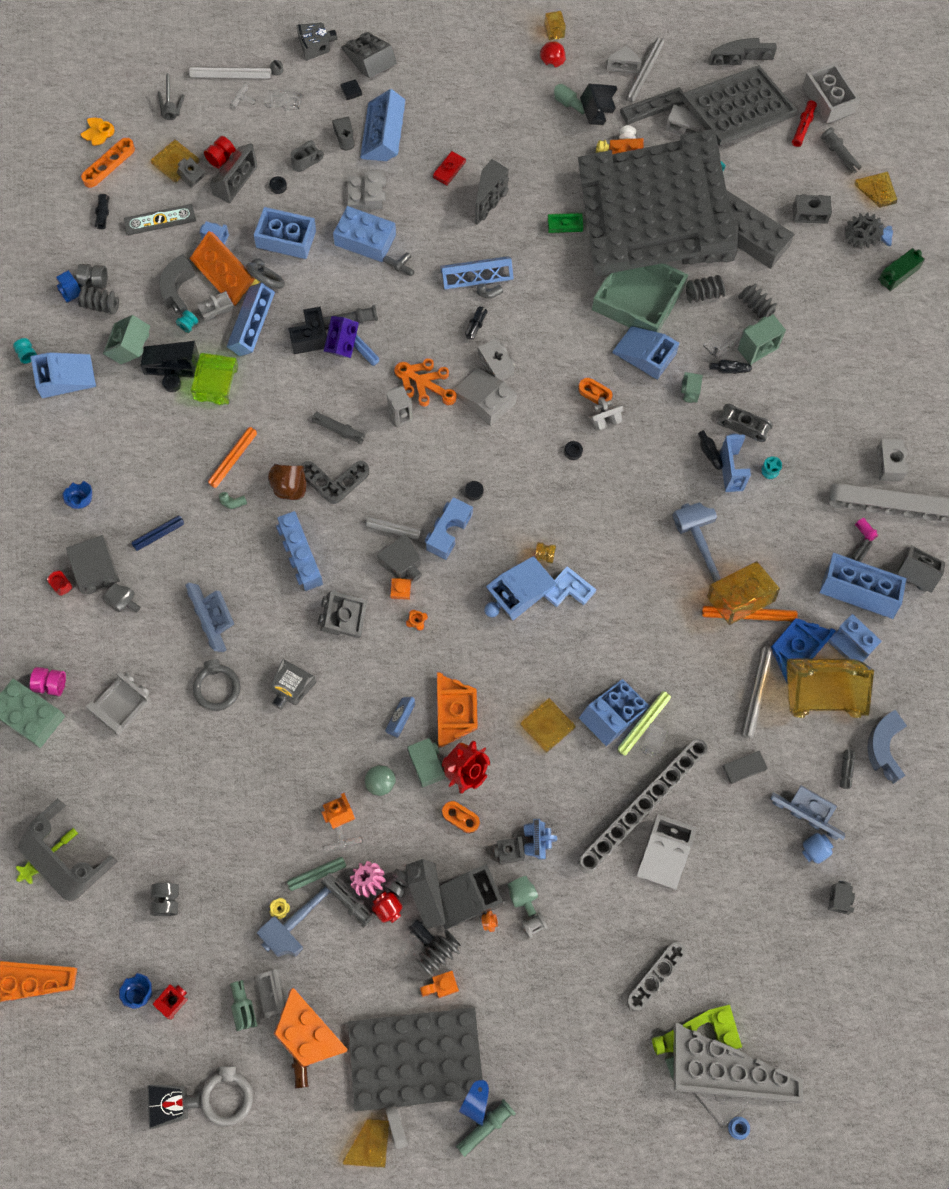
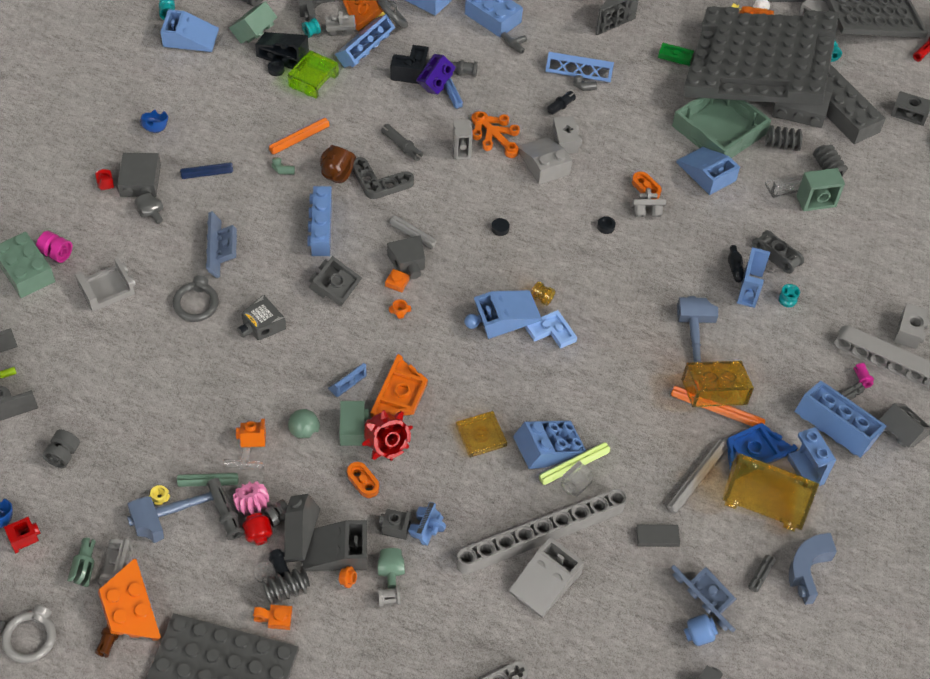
camera: 20 degrees right, 15 degrees down
(455, 514) = (473, 237): medium blue arch -> none
(691, 387) = (738, 208): sand green brick -> none
(728, 366) = (783, 205): black piece -> none

